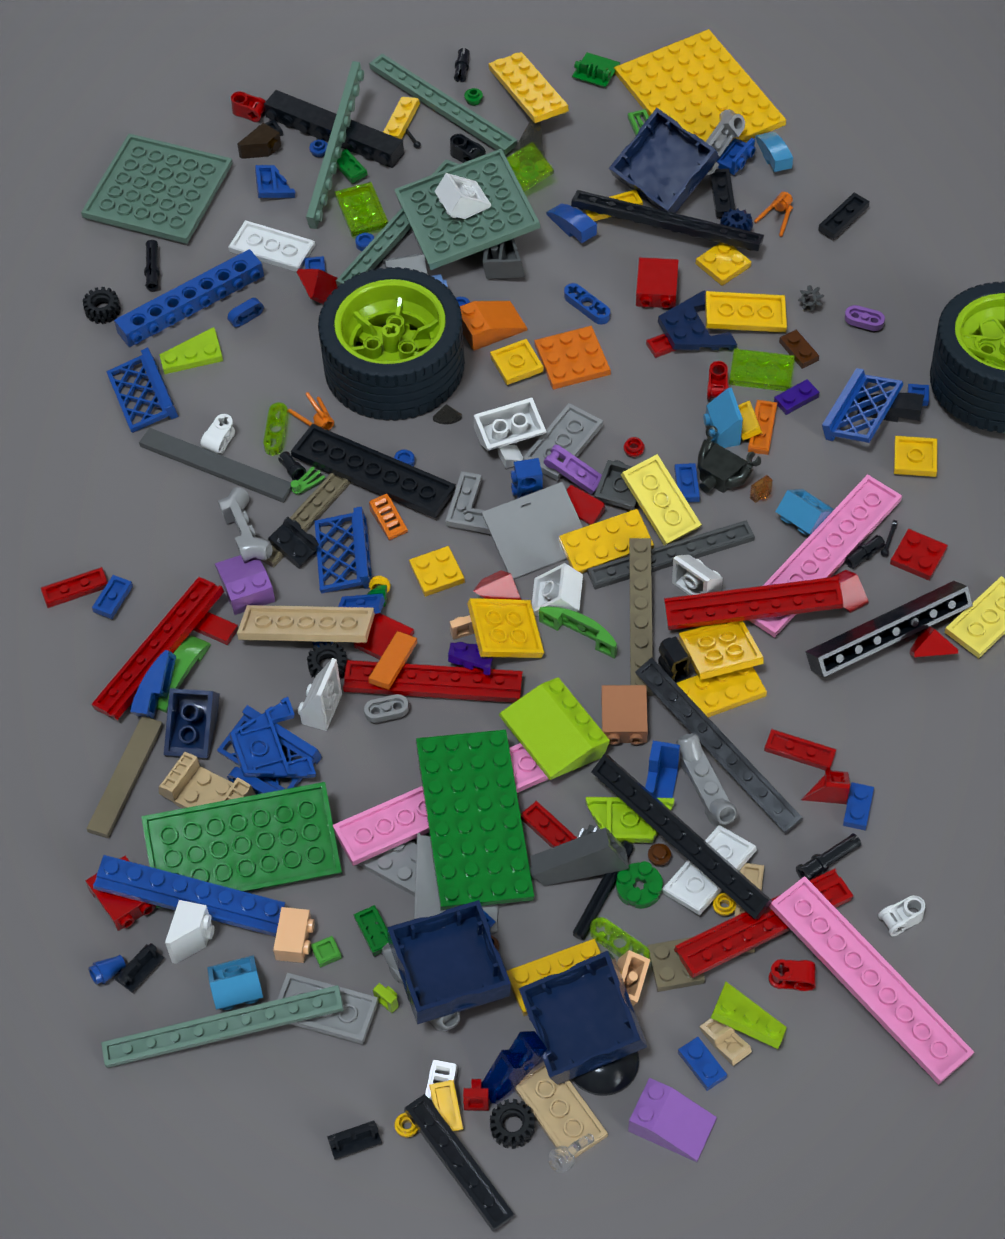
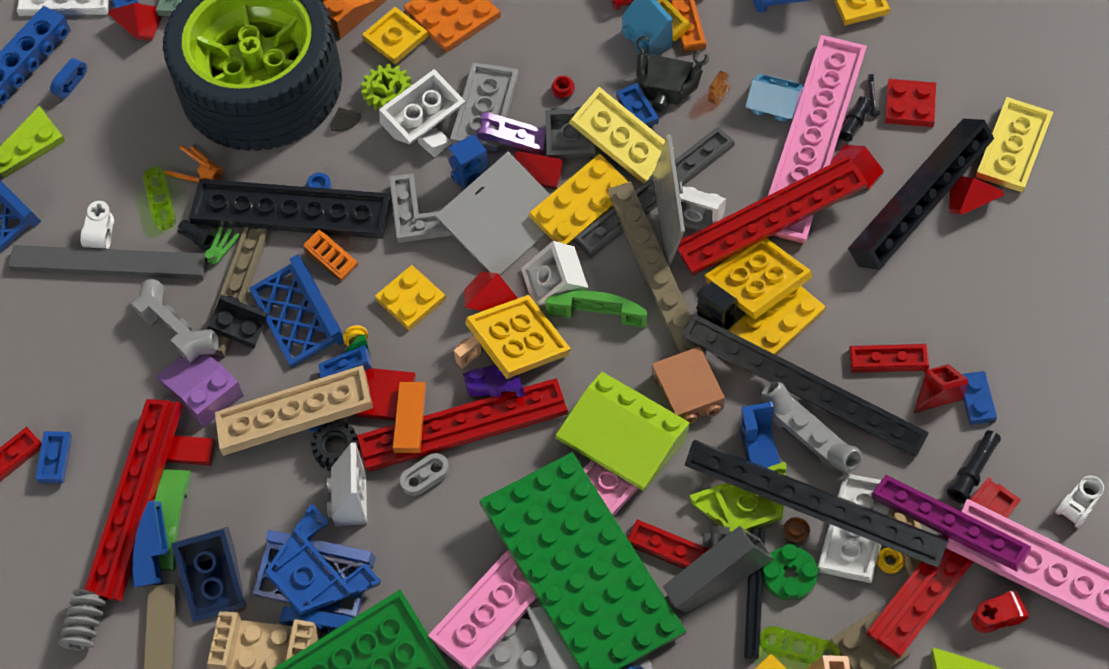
camera: 20 degrees left, 5 degrees up
(81, 722) = (81, 620): none -> light grey piece
(489, 397) = (374, 85): none -> lime gear
(675, 551) = (668, 201): none -> light grey piece
(781, 888) = (951, 523): none -> magenta tile

